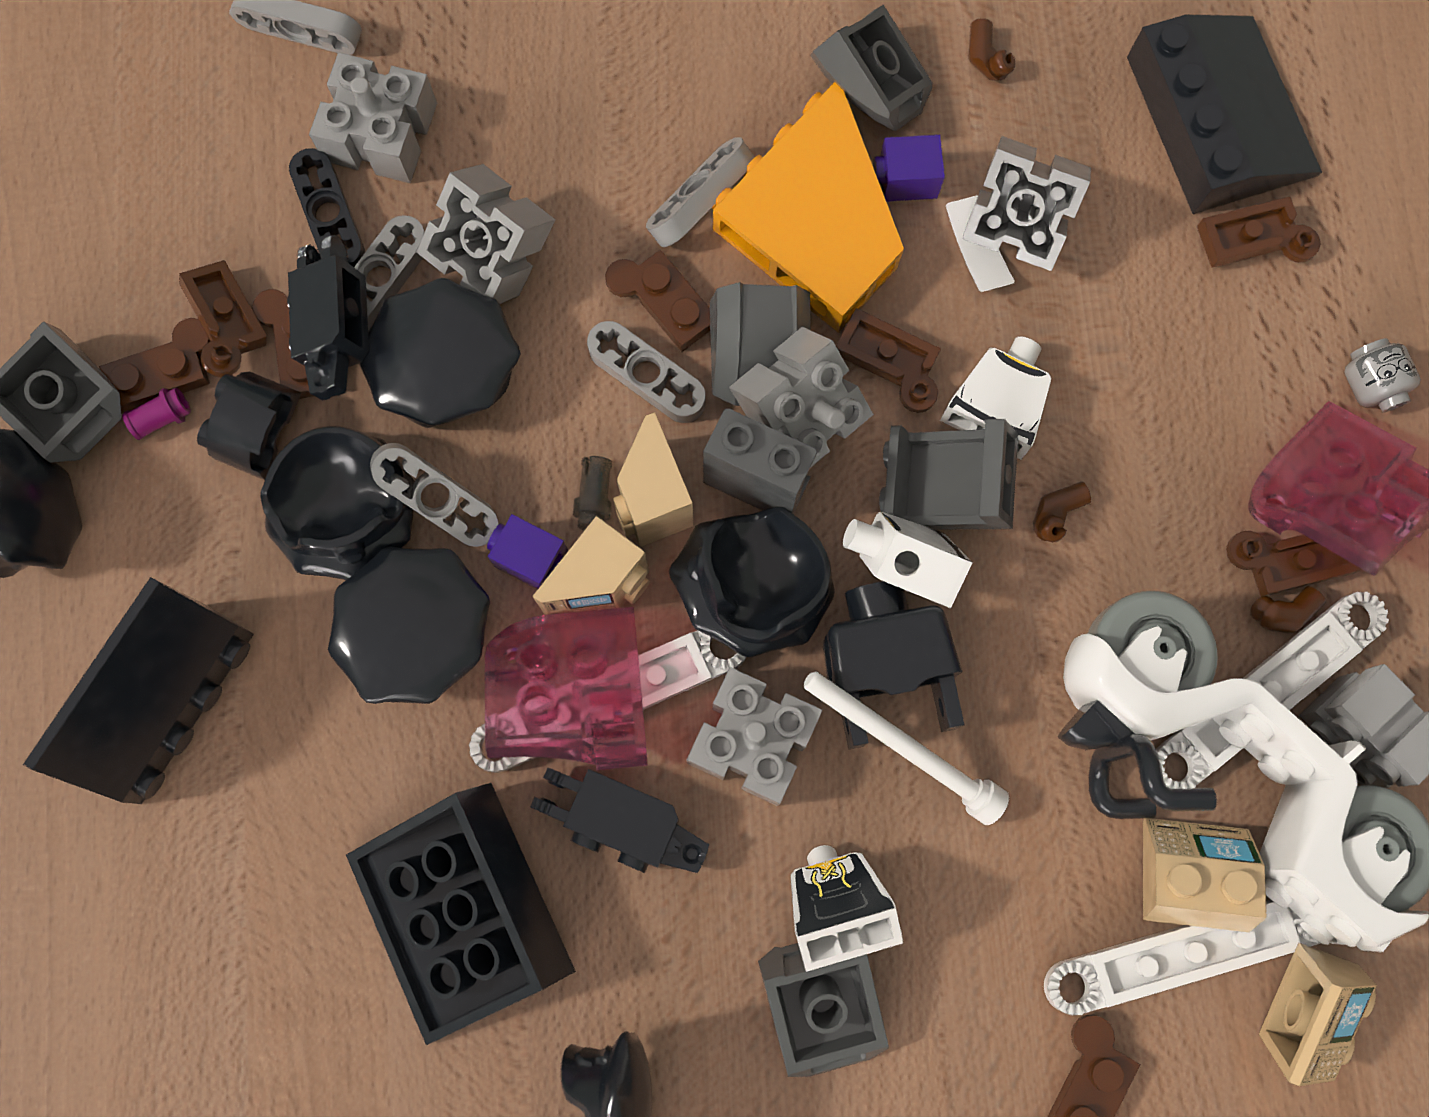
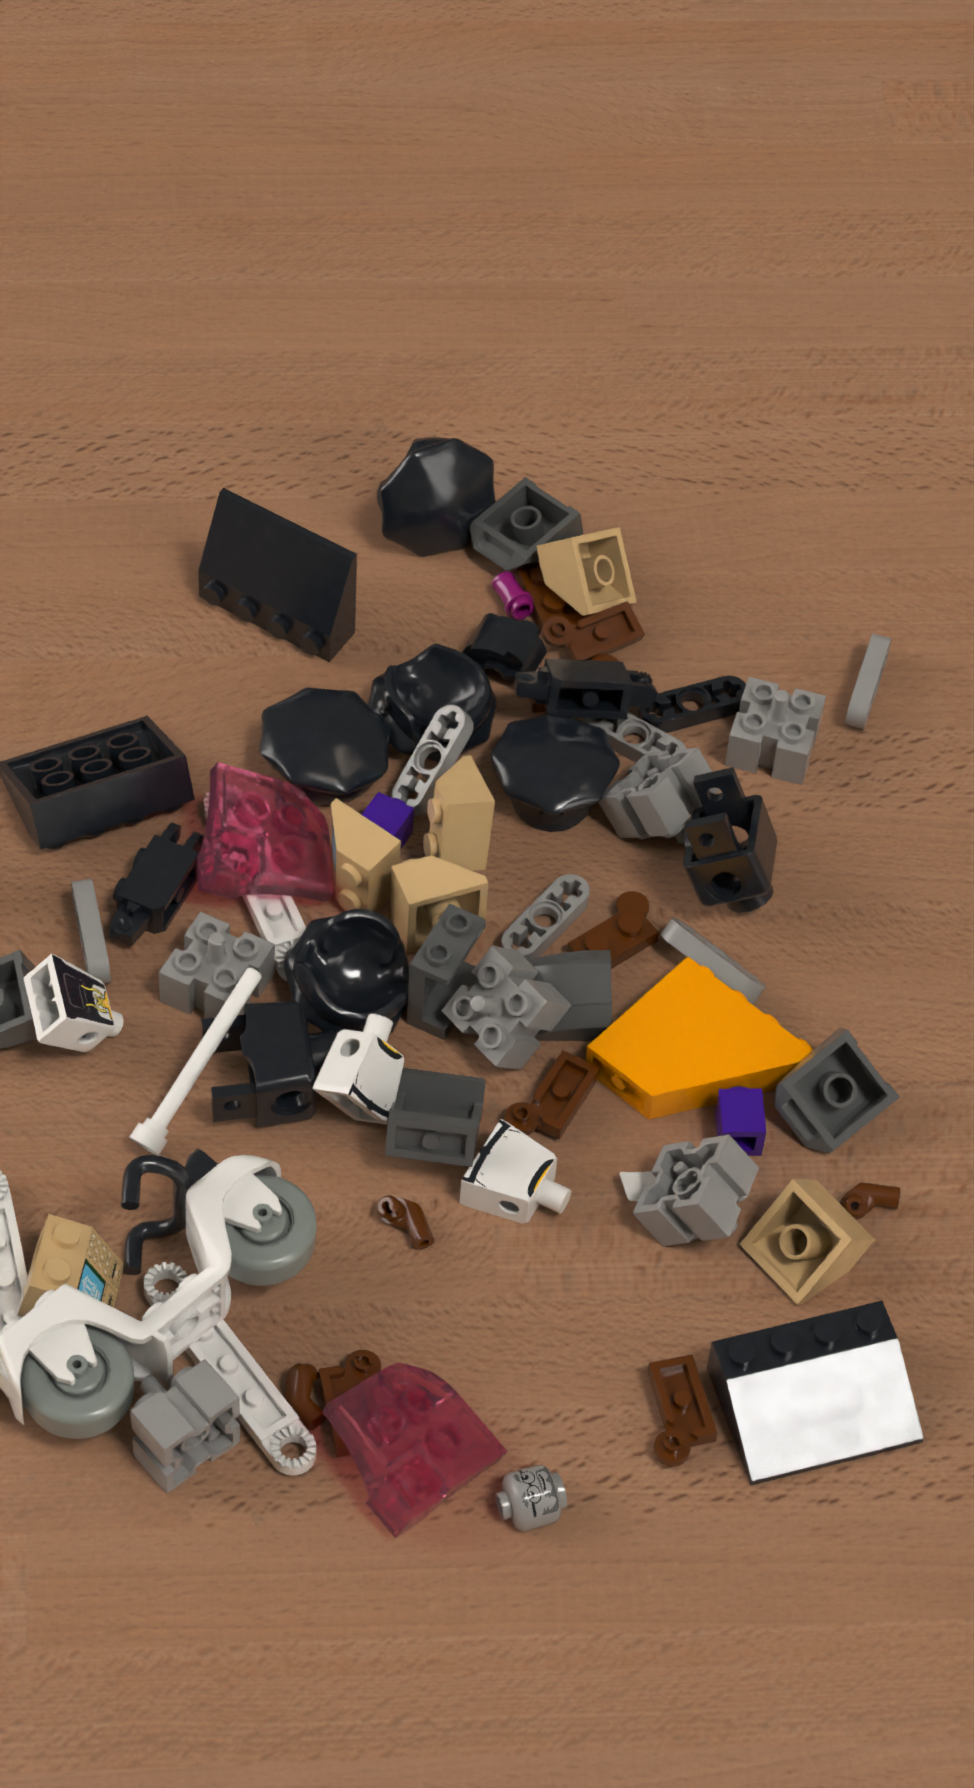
camera: 90 degrees right, 25 degrees down
(129, 319) = (588, 570): none -> tan slope
(538, 452) = (460, 817): none -> tan slope
(582, 147) = (714, 859): none -> black piece
(695, 896) = (90, 929): none -> light grey beam
(1052, 102) = (806, 1240): none -> tan slope

